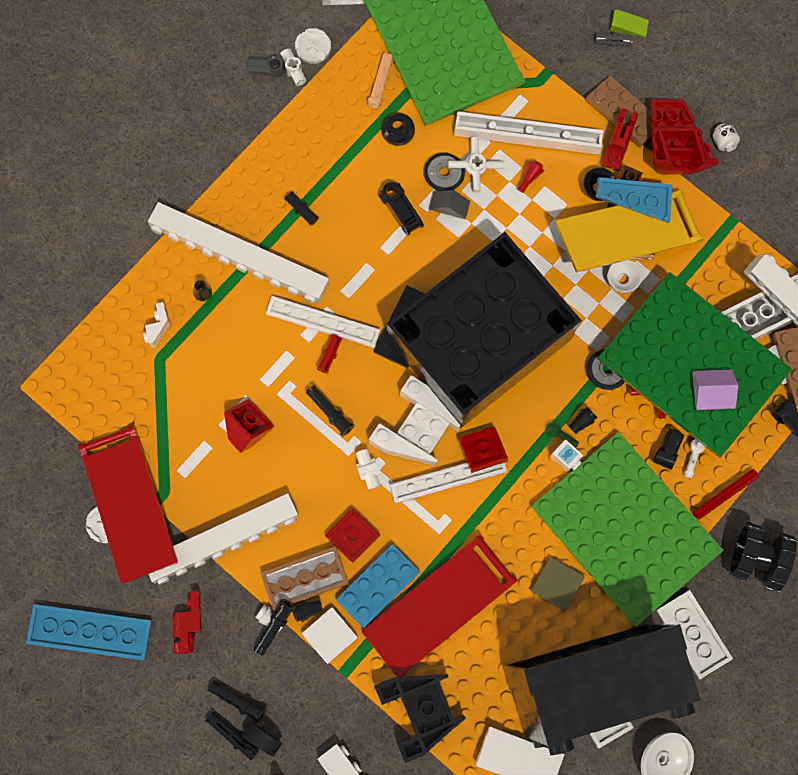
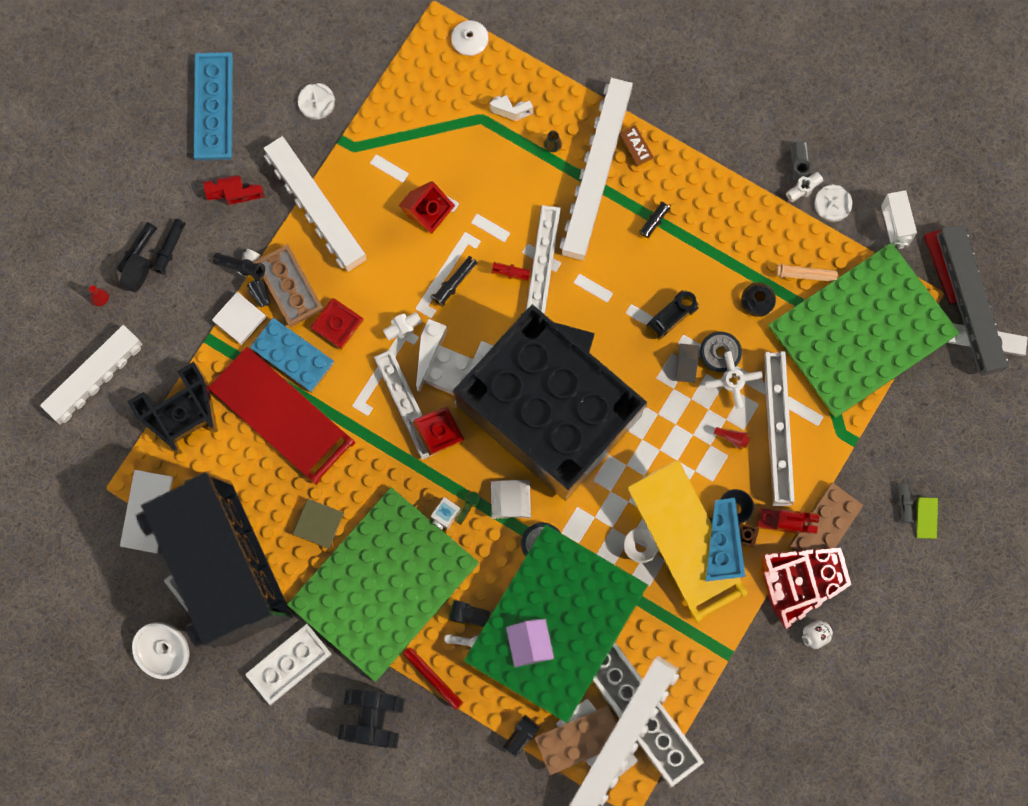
camera: 85 degrees right, 0 degrees up
(75, 363) = (469, 45): none -> white dish
(128, 506) = (332, 114): red flag -> none
(221, 212) = (636, 146): none -> dark orange tile
(561, 392) = (510, 499): none -> white slope
(582, 420) = (485, 525): black cone -> none

